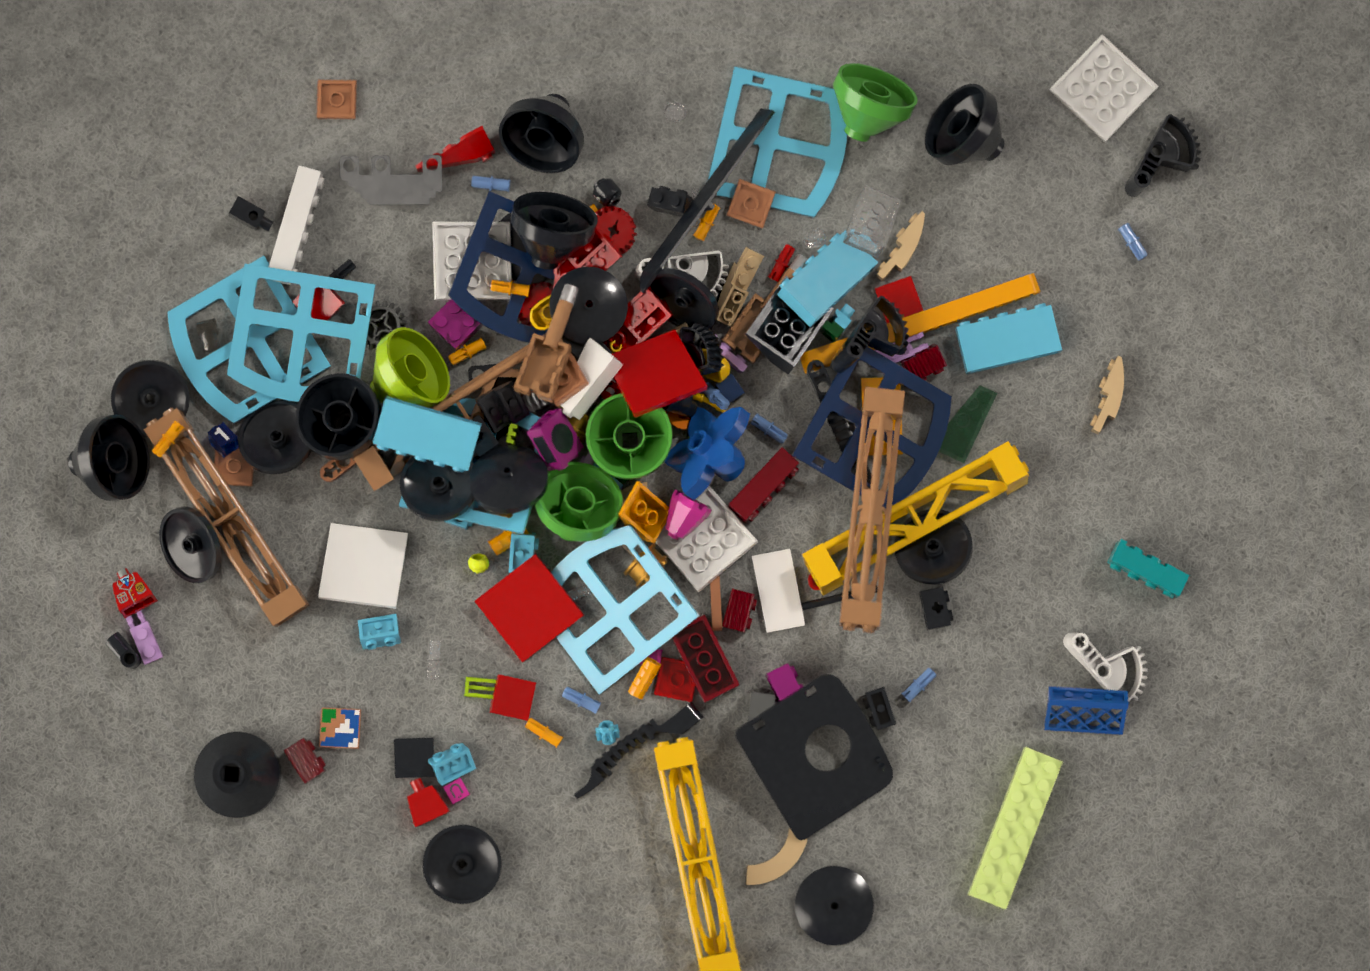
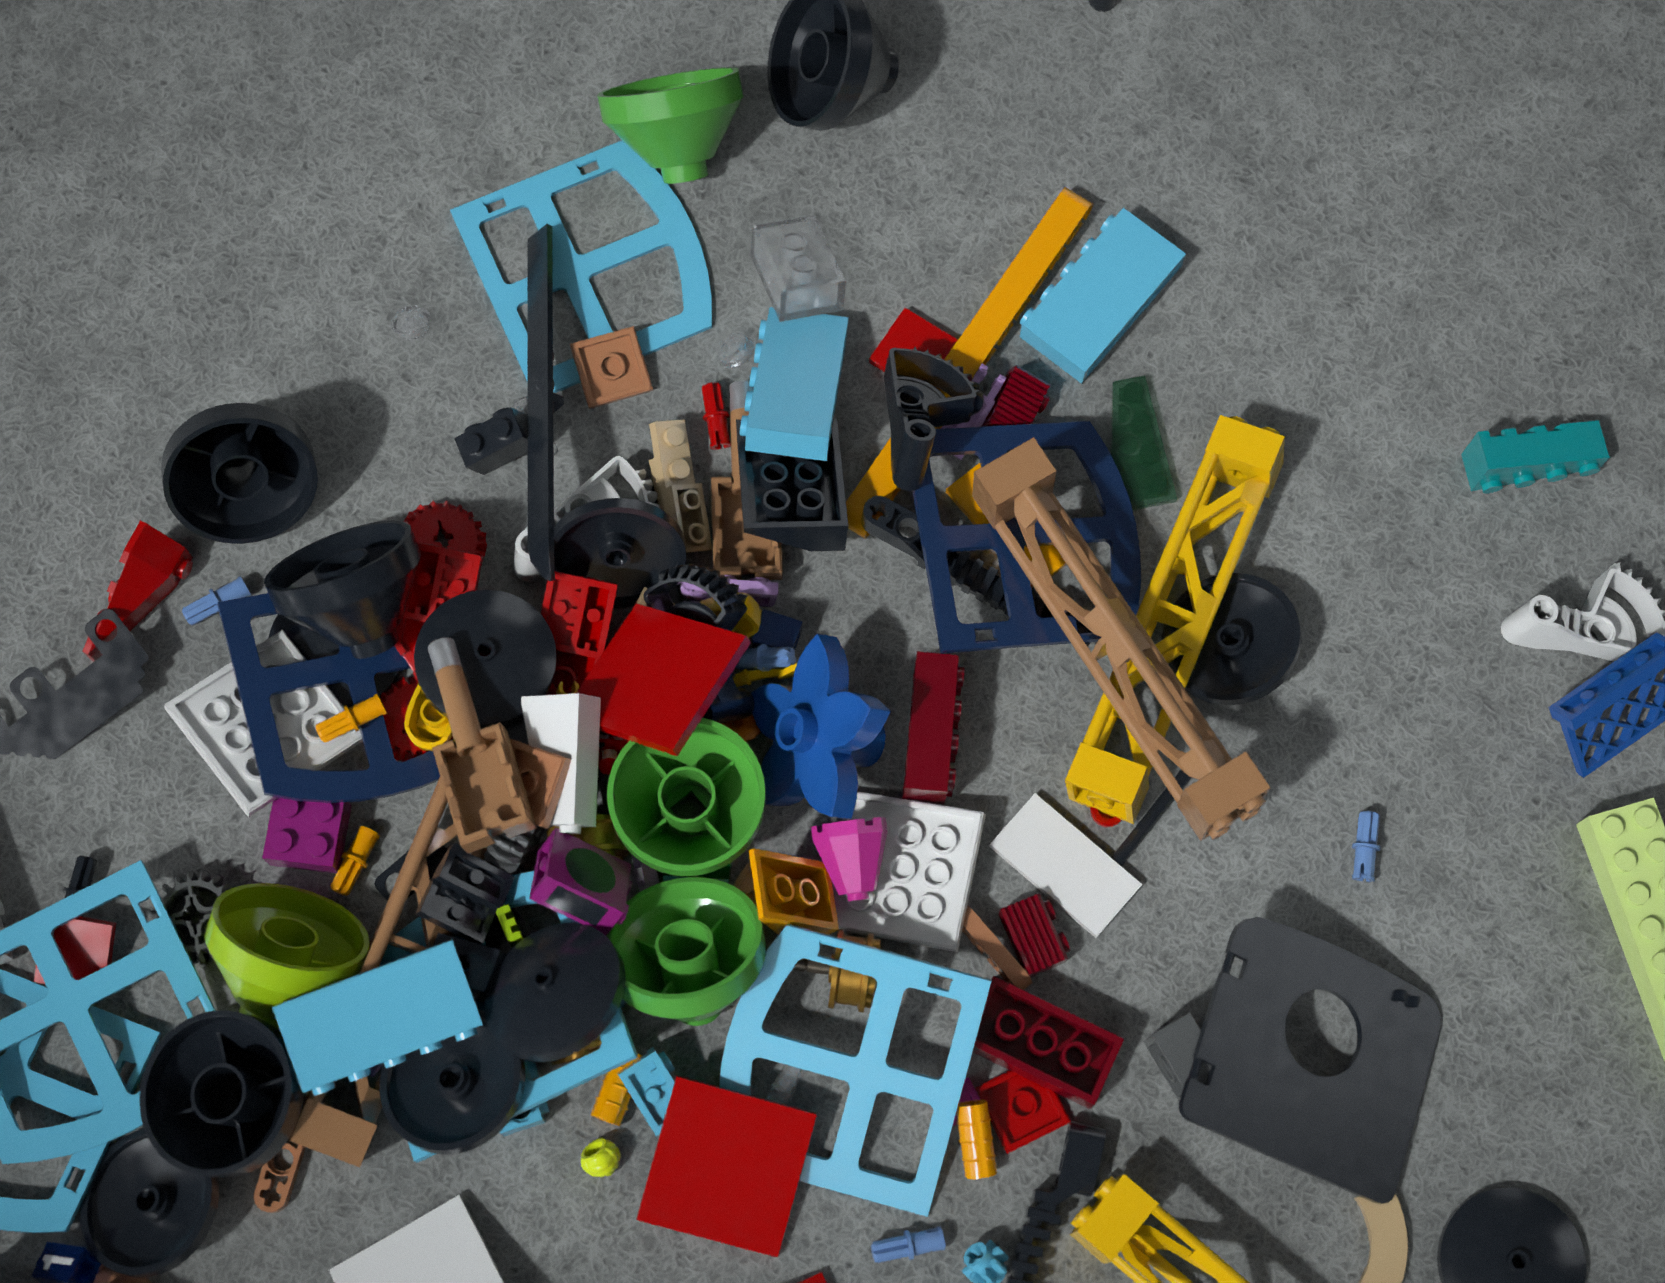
camera: 45 degrees left, 10 degrees down
(607, 192) = (395, 494): black head -> none
(706, 223) = (568, 437): light orange axle -> none
(769, 428) = (876, 649): medium blue axle -> none
(783, 681) = (1182, 986): magenta brick -> none
(840, 323) = (858, 435): hips -> none
(880, 709) = (1344, 920): black brick -> none
(908, 241) = (868, 273): tan slope -> none
(933, 619) = (1309, 739): black brick -> none
(1112, 387) = (1293, 260): tan slope -> none
(1132, 241) = (1158, 61): medium blue axle -> none

